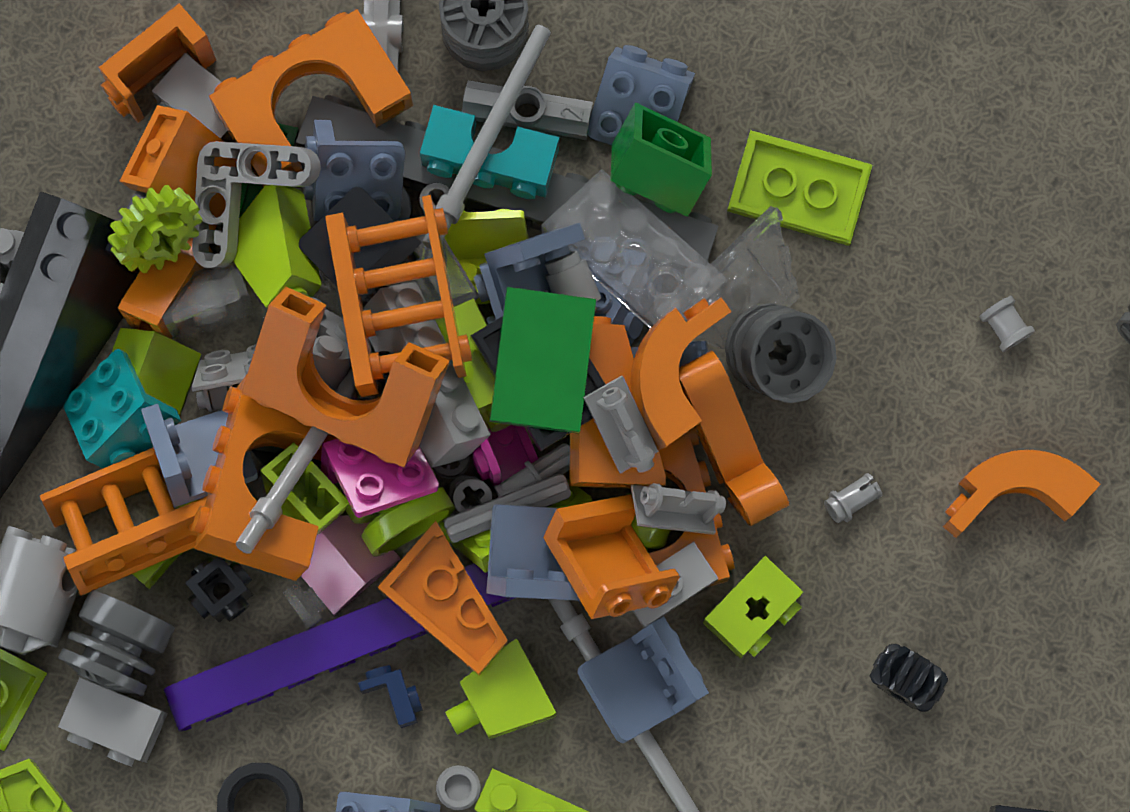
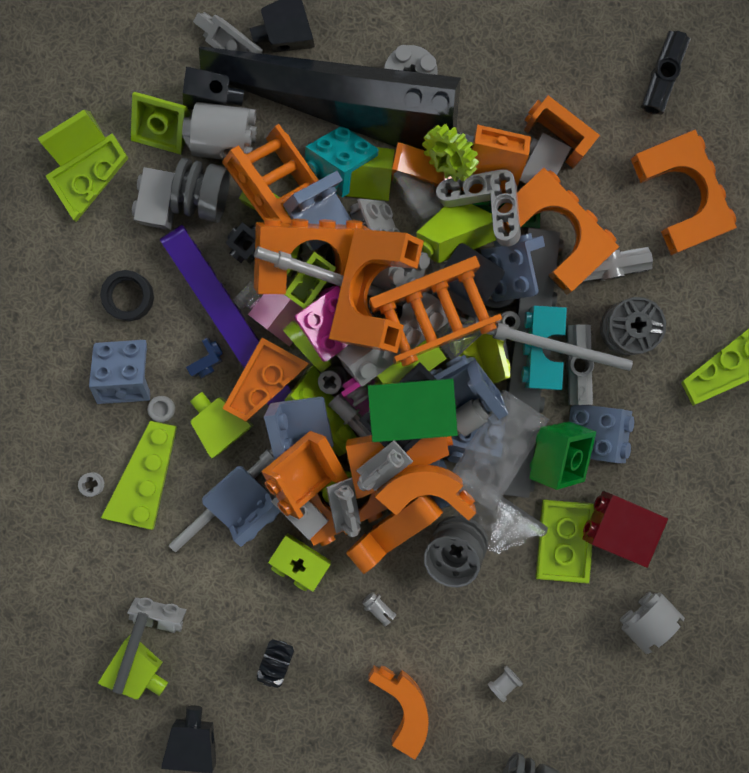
camera: 80 degrees right, 10 degrees up
(479, 517) = (335, 417): light grey axle -> none
(504, 452) = (359, 394): none -> light grey bush
(795, 92) = (624, 528): none -> dark red panel
(948, 79) = (653, 622): none -> light grey brick

